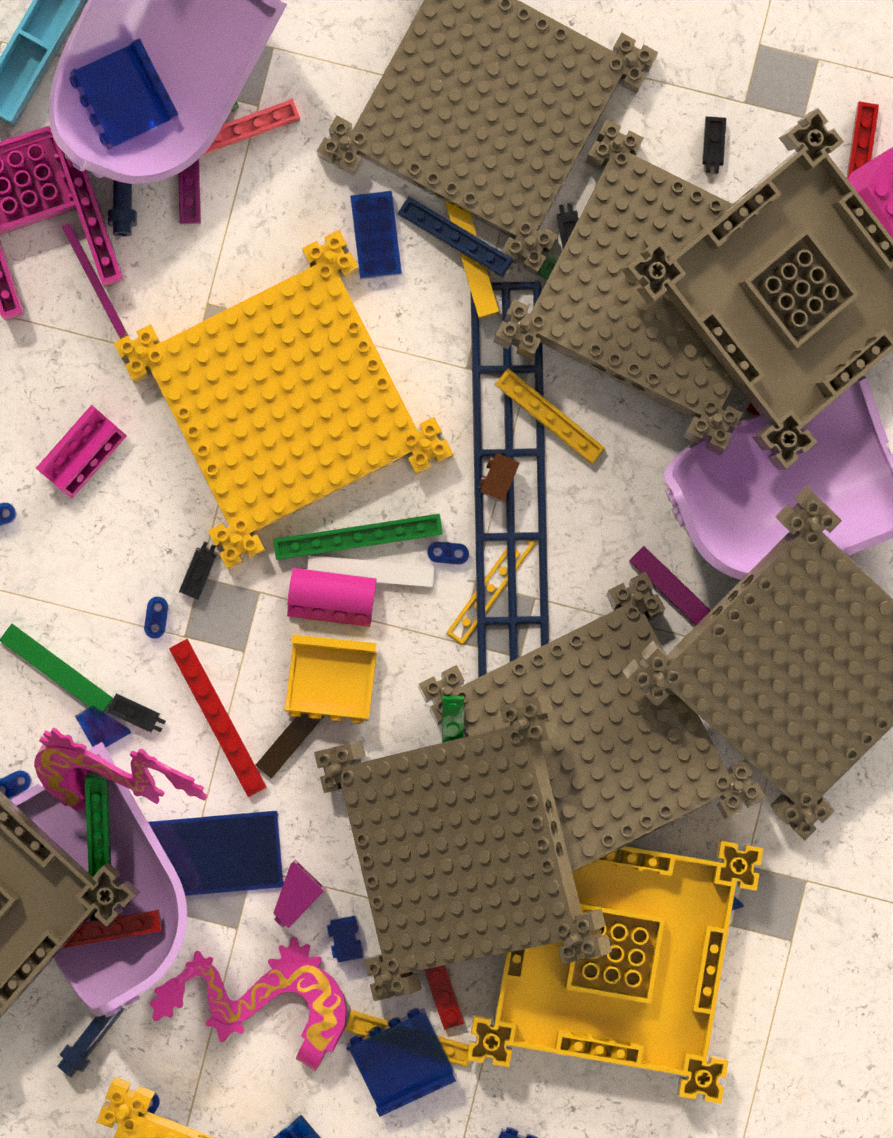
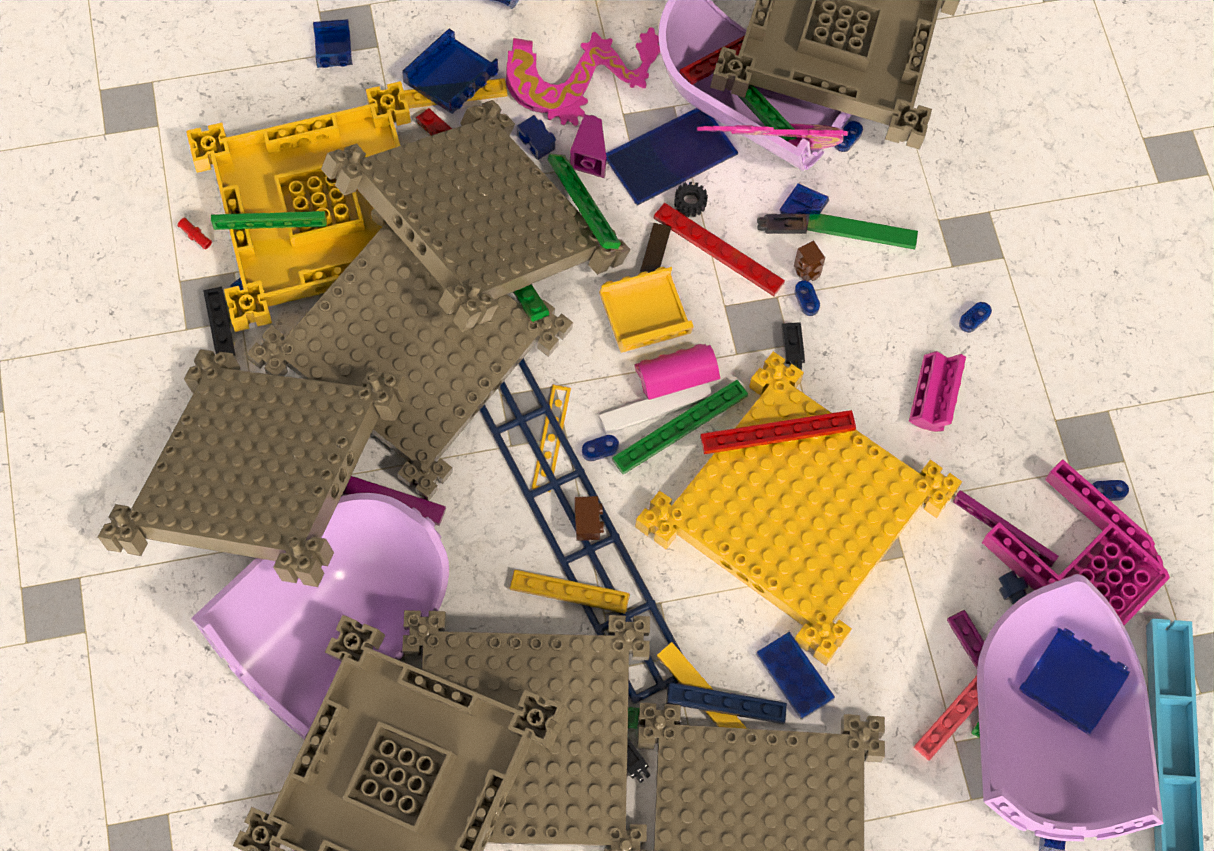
camera: 150 degrees right, 20 degrees down
(136, 650) = (809, 261): none -> reddish brown brick
(231, 784) = (694, 190): none -> black tyre
(270, 473) = (777, 432): none -> red plate
(338, 825) = (584, 201): none -> green plate
(679, 945) = (269, 220): none -> green tile
(755, 988) = (194, 233): none -> red pin
(771, 869) = (219, 320): none -> black plate

